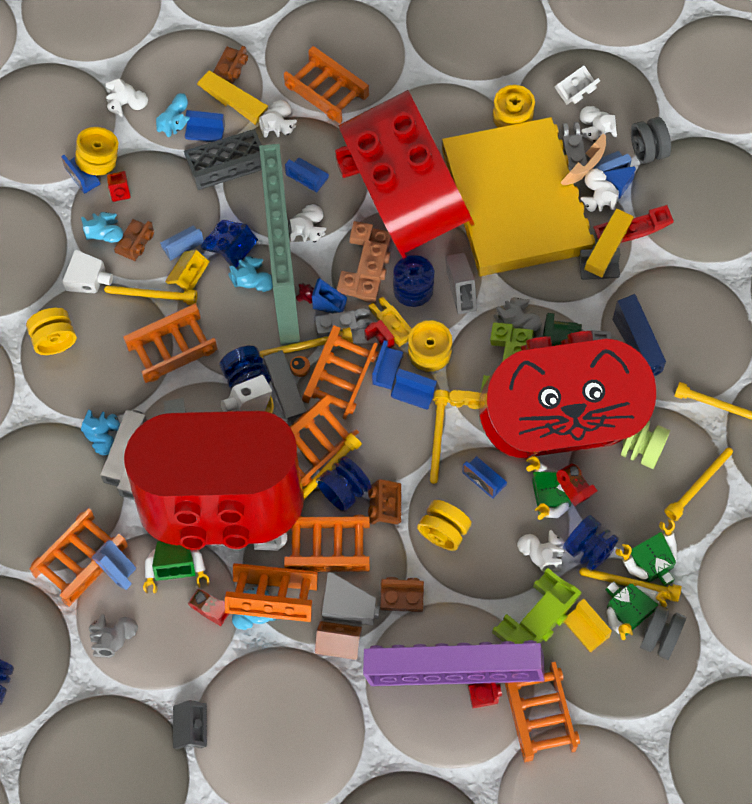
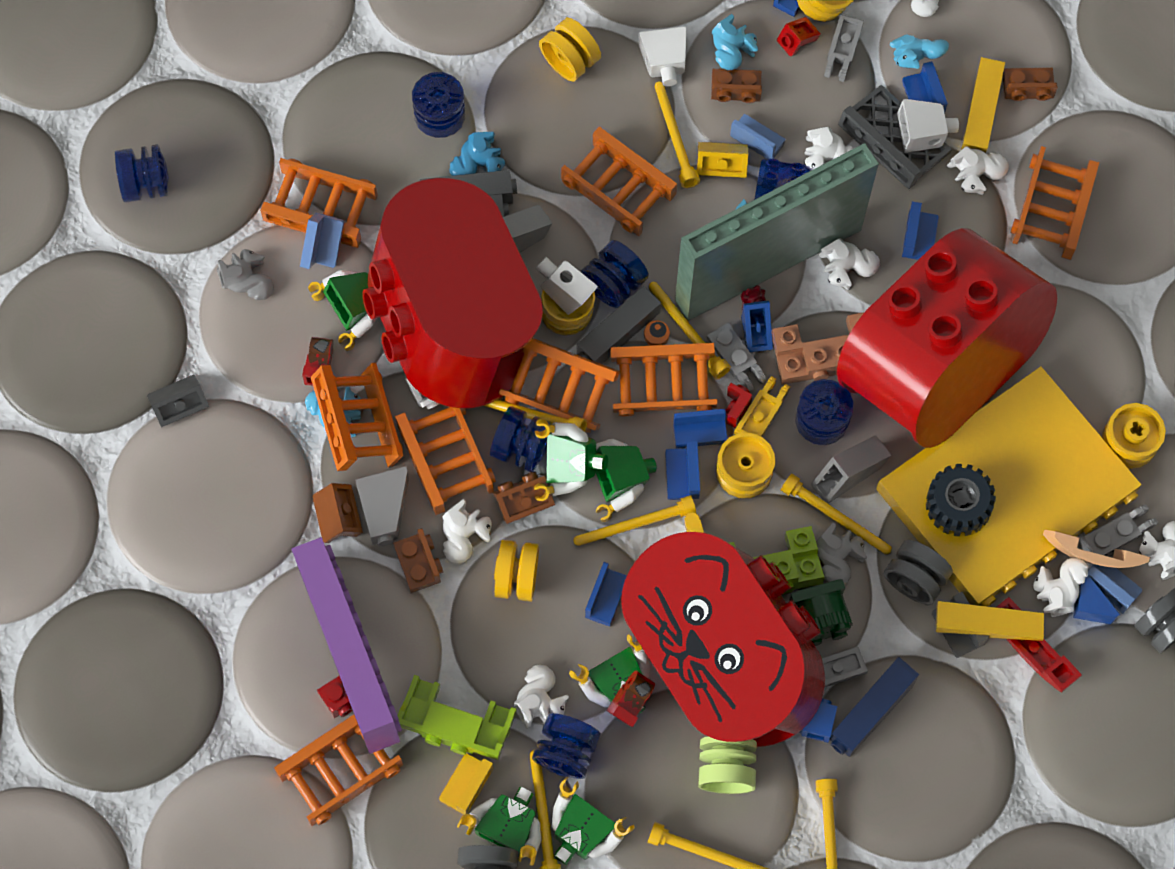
camera: 65 degrees right, 5 degrees up
(45, 439) = (441, 116): none -> clear blue wheel
(142, 161) = (844, 45): none -> light grey hinge
(215, 200) = (825, 147): none -> white animal
(230, 135) = (924, 125): none -> white torso
(377, 455) = (569, 458): none -> torso
(390, 556) = (458, 527): none -> white animal
(397, 428) = (624, 475): none -> green torso
(456, 324) = (794, 487): none -> yellow piece
(519, 220) = (960, 499): none -> black wheel
(556, 269) = (918, 572): none -> dark grey wheel

